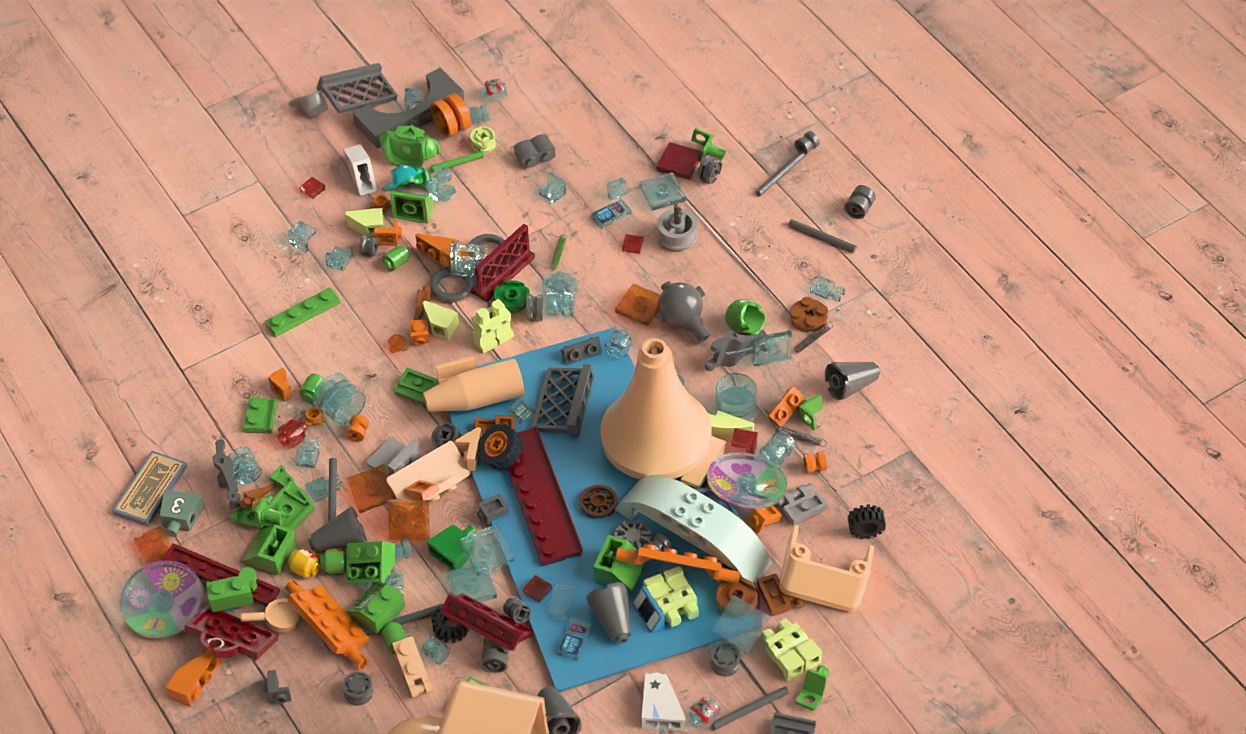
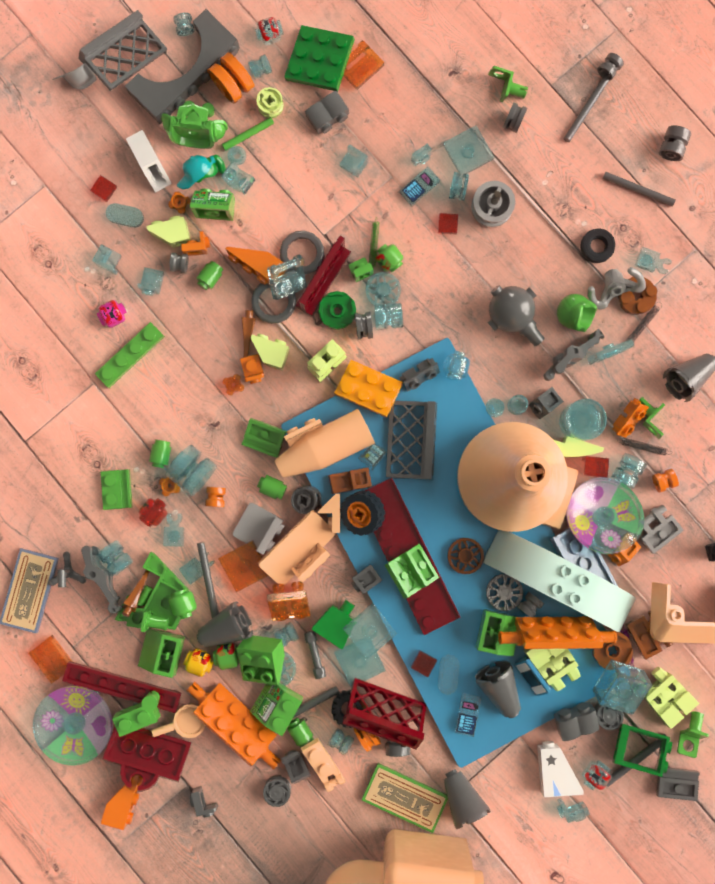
camera: 10 degrees left, 35 degrees up
(180, 511) = (64, 618): sand green torso -> none
(192, 464) = (65, 573): none -> dark grey piece
(279, 384) = (129, 456): orange bracket -> none
(294, 277) = (111, 313): none -> head
(302, 501) = (182, 603): none -> bright green head
(327, 208) = (124, 215): none -> clear light blue tile
(382, 664) = (296, 766): none -> dark grey bracket
(412, 97) = (184, 56): clear light blue bracket -> none
(415, 426) = (272, 487): none -> bright green brick
(417, 78) = (184, 24): none -> clear light blue wheel
(422, 489) = (296, 576): orange tile -> none
(425, 560) = (319, 670): none -> dark grey bar
(464, 644) = (366, 739): none -> orange wheel
(517, 609) = (409, 690): dark grey wheel -> none
(530, 355) = (368, 388): none -> light orange plate
(535, 112) = (319, 58): none -> green plate
(539, 500) = (411, 571): none -> bright green slope
(541, 266) = (361, 269): none -> bright green bracket
(570, 260) = (389, 258): none -> bright green head
(572, 122) = (365, 67): none -> clear orange plate
(638, 304) = (468, 304): clear orange plate -> none
(647, 213) = (456, 189): none -> clear light blue wheel
(679, 160) = (479, 104): dark red tile -> none
(689, 656) = (576, 721): none -> dark grey brick
(702, 386) = (545, 403): none -> dark grey bracket
(759, 675) = (665, 747): none -> green window
(775, 282) = (603, 235): none -> black tyre
(786, 299) = (616, 285): none -> light grey piece

